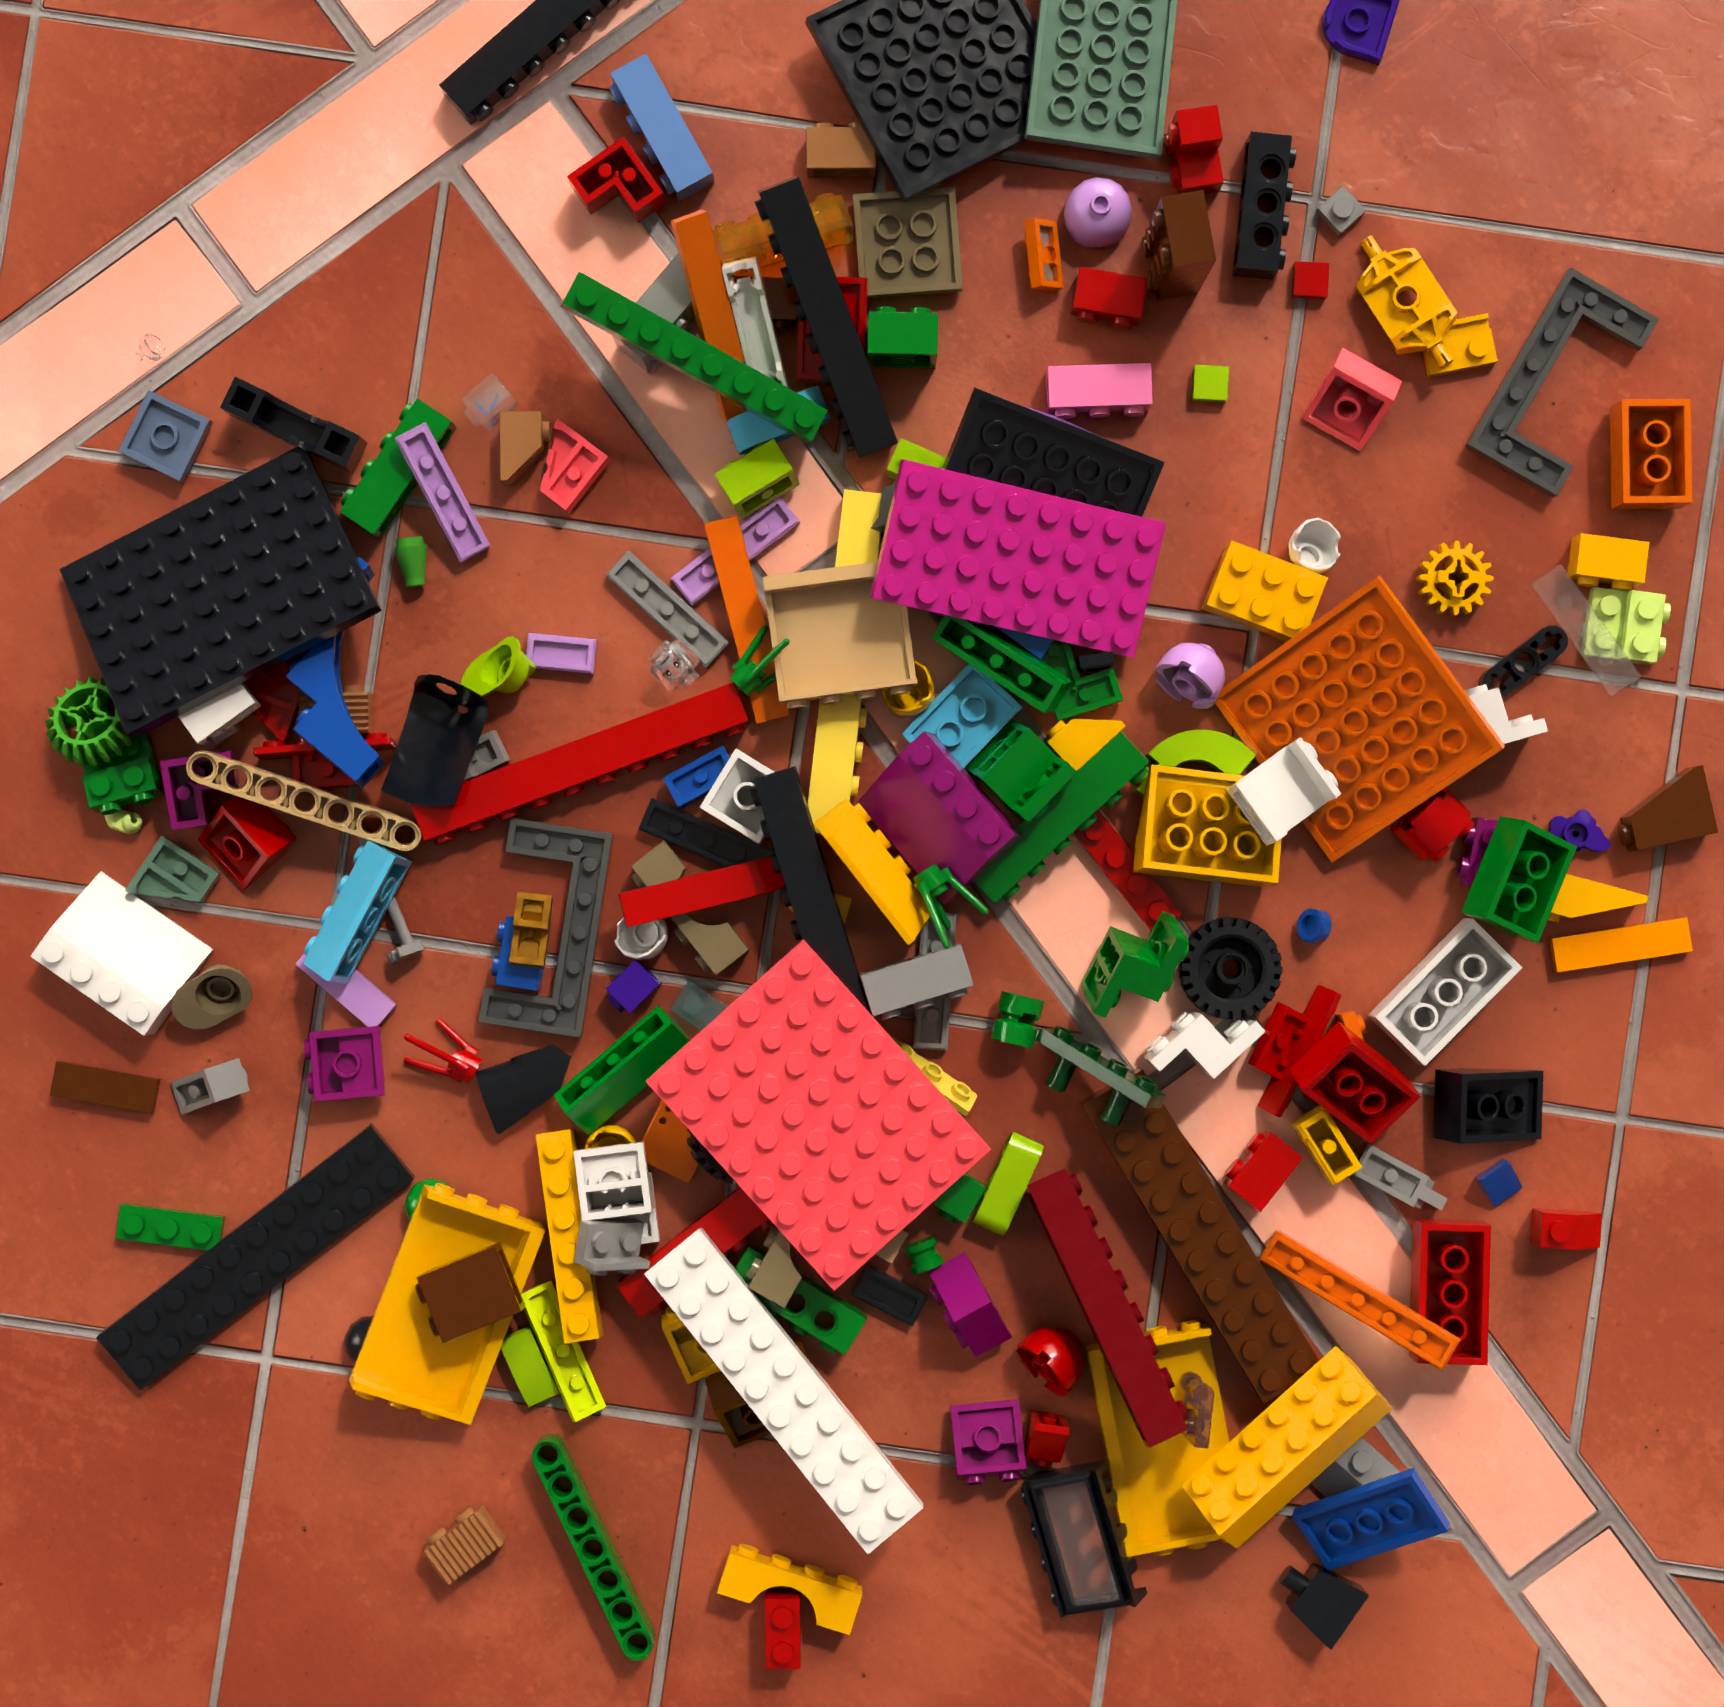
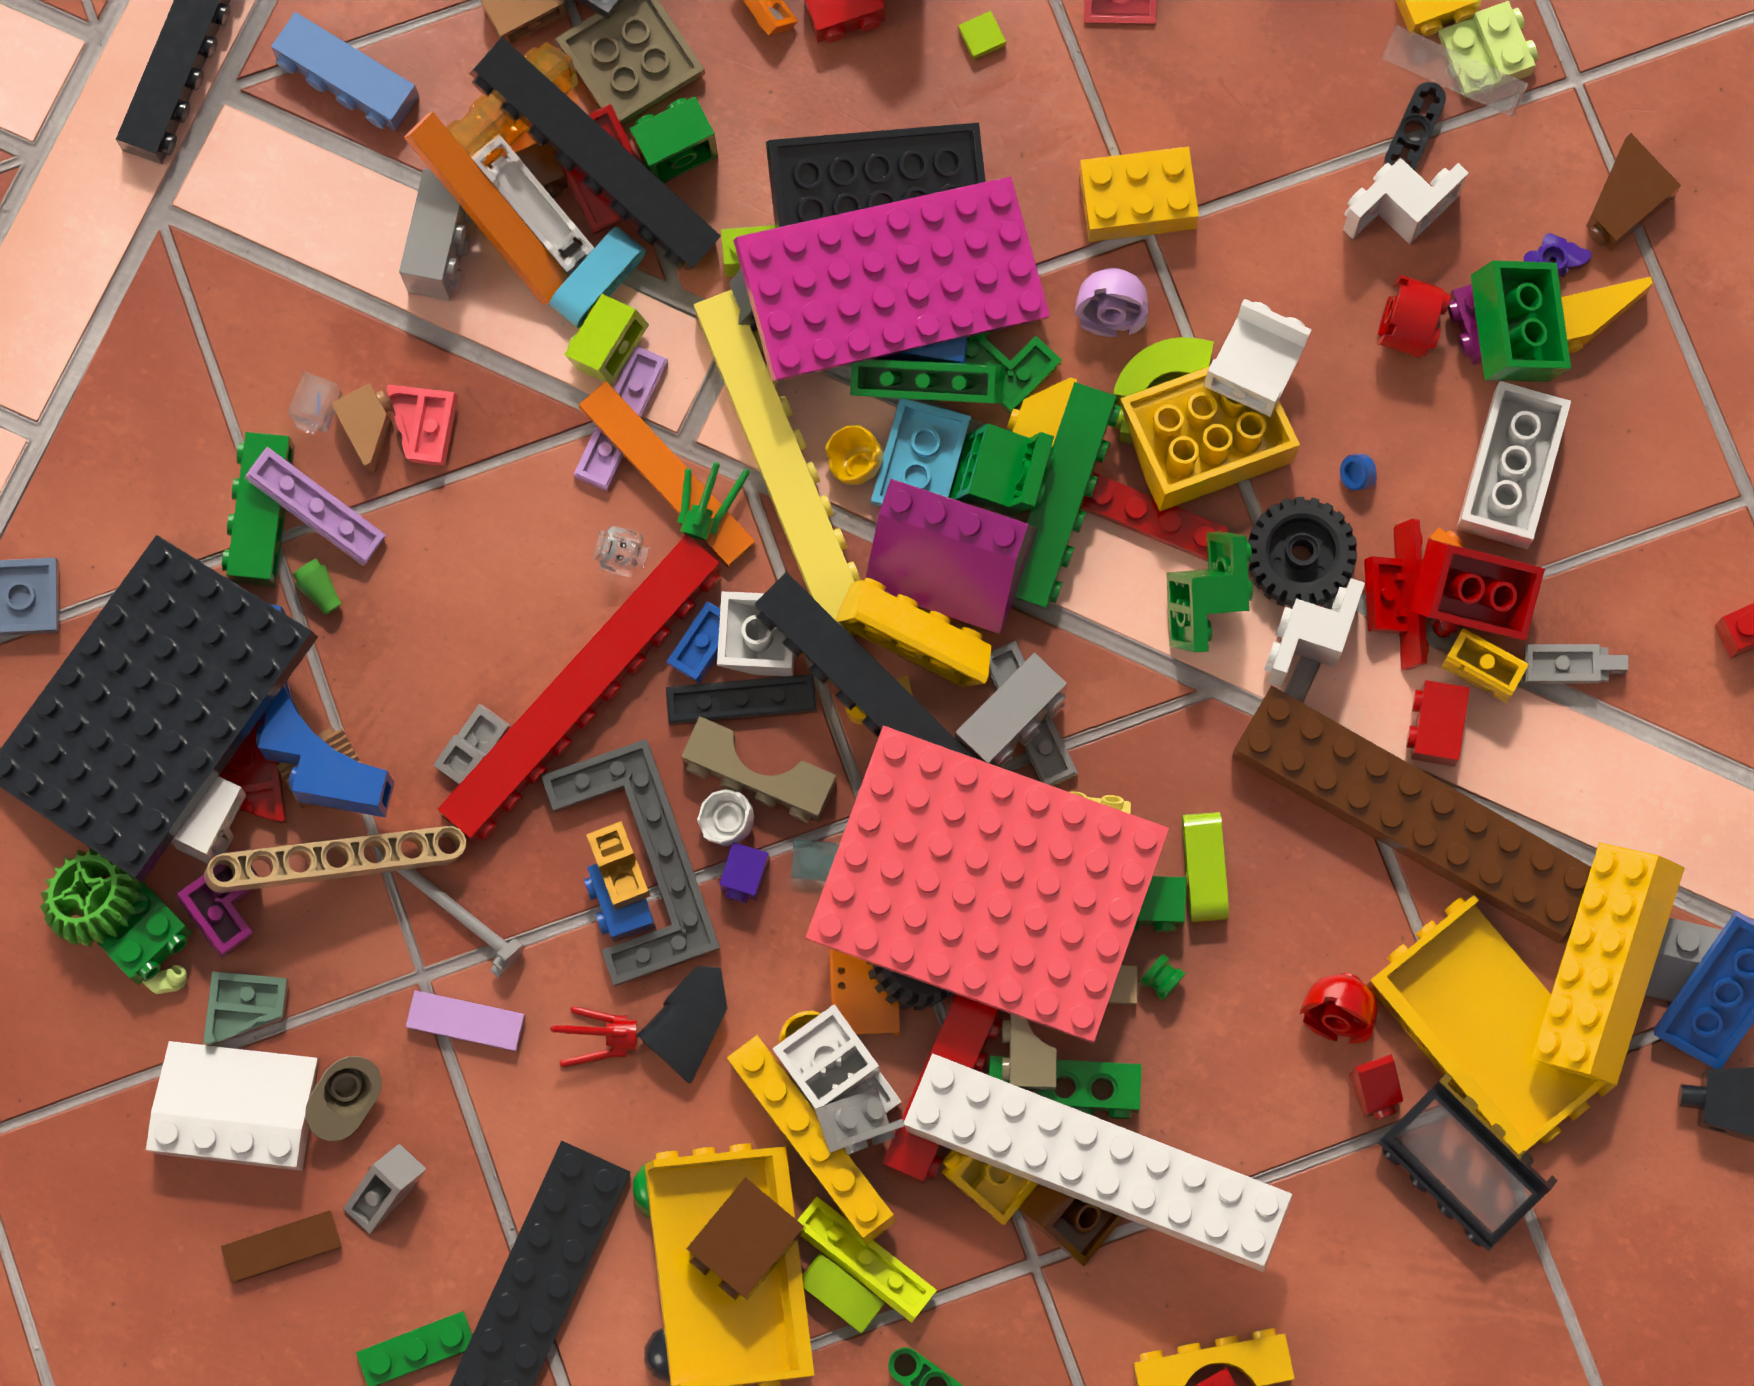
camera: 20 degrees left, 10 degrees down
(246, 839) = (295, 932): red slope -> none
(293, 425) = (107, 522): black arch -> none
(314, 768) = (324, 823): red bracket -> none
(345, 1063) = (505, 1093): magenta plate -> none
(356, 912) = (440, 938): medium azure slope -> none
(436, 743) = (432, 744): black piece -> none
(499, 669) = (457, 642): lime piece -> none
(562, 653) = (506, 600): lavender tile -> none
(614, 174) = (329, 132): red brick -> none
(621, 1070) = (775, 957): green brick -> none
(667, 608) = (584, 504): light grey tile -> none
(693, 357) = (490, 252): green brick -> none
(699, 891) = (762, 742): red tile -> none
(837, 636) = (763, 436): tan panel -> none
(889, 1294) = (1151, 1036): black tile -> none
(930, 885) = (976, 617): green plant -> none
(969, 1306) = (1233, 999): magenta brick -> none
(988, 1441) = (1324, 1122): magenta plate -> none
(1017, 1019) = (1127, 706): green wheel -> none
(1095, 661) = (1016, 339): black tile -> none
(1099, 389) = (882, 92): bright pink brick -> none
(1106, 1308) = (1363, 922): dark red brick -> none
(1113, 1073) = (1246, 698): dark green plate -> none
(1199, 1405) = (1507, 982): plate -> none
(1314, 545) = (1160, 126): white hair -> none
(1360, 1299) = (1598, 791): orange tile -> none
(1373, 709) = (1297, 236): orange plate -> none
(1453, 1283) = (1679, 739): red brick -> none
(1454, 564) = (1301, 75): yellow gear -> none
(1487, 1105) = (1615, 549): black slope -> none
(1499, 1182) = (1669, 617): blue slope -> none
(1620, 944) = (1653, 338): light orange tile -> none

